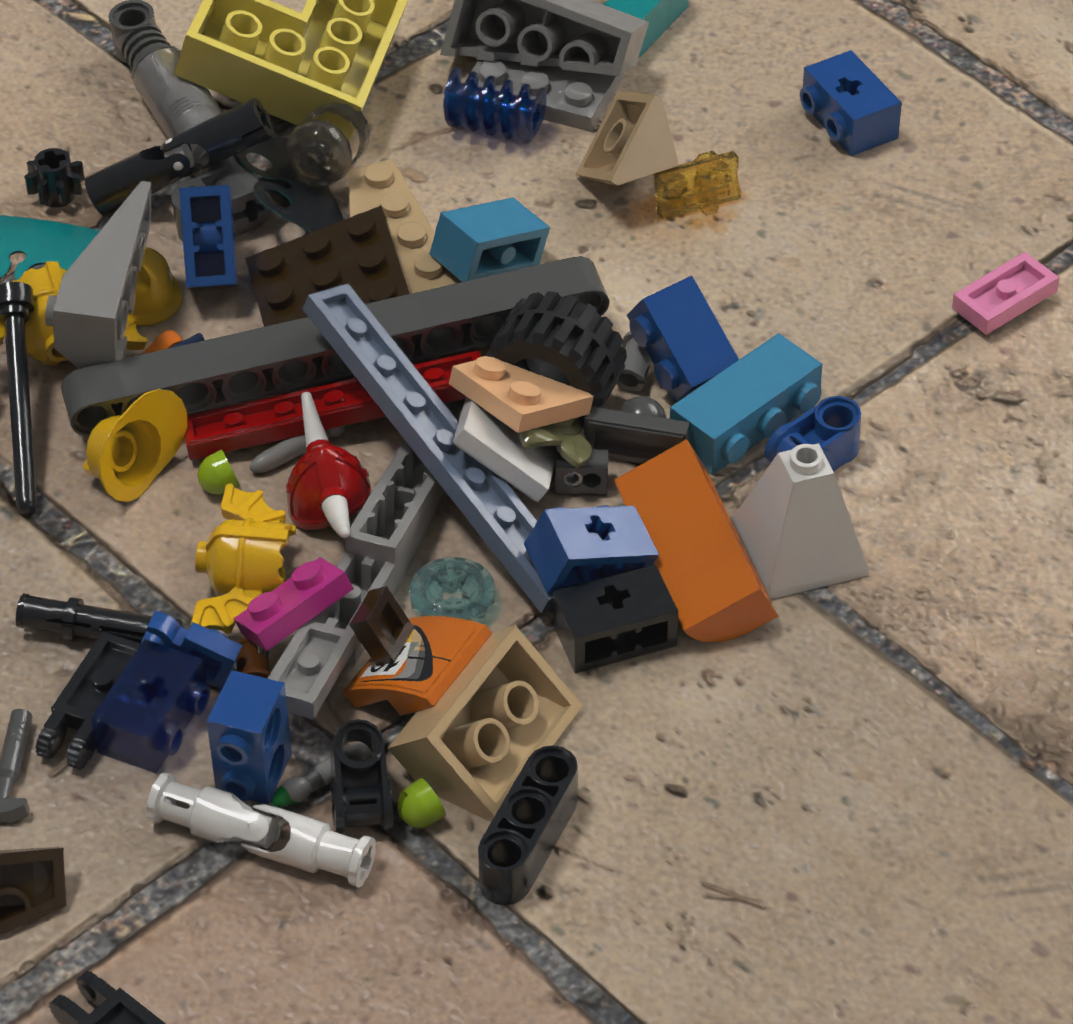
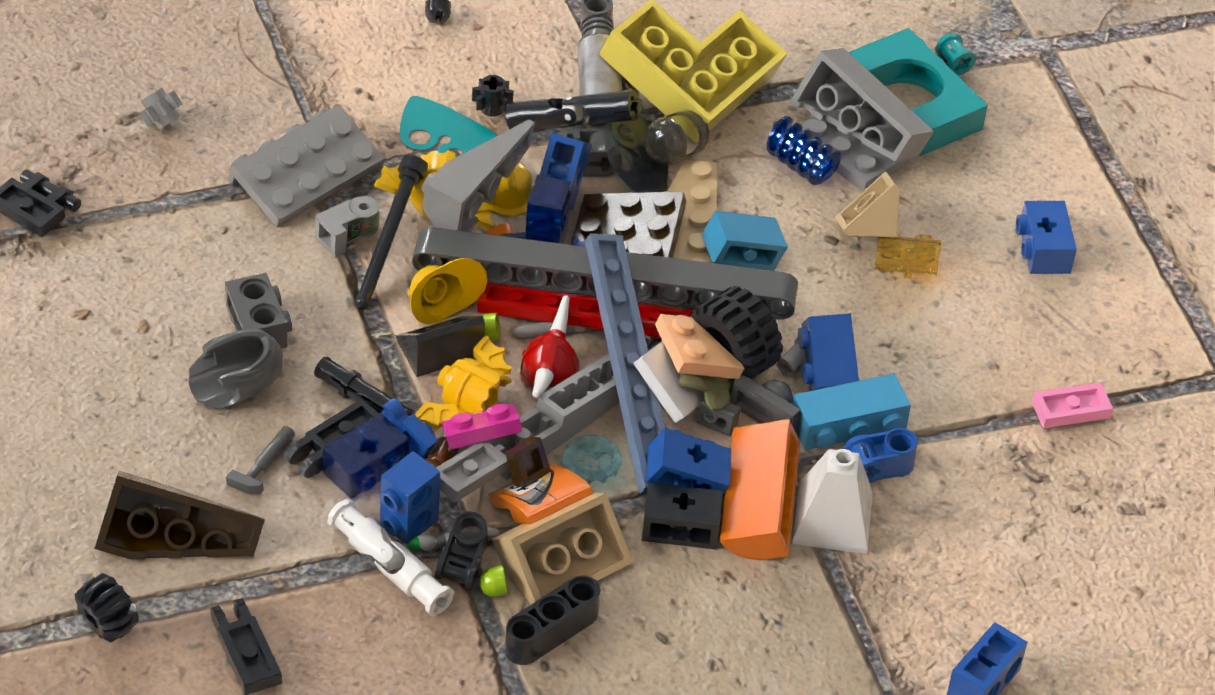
camera: 20 degrees right, 0 degrees up
(168, 516) = (441, 343): none -> black slope
(219, 290) = (548, 210): none -> clear blue brick

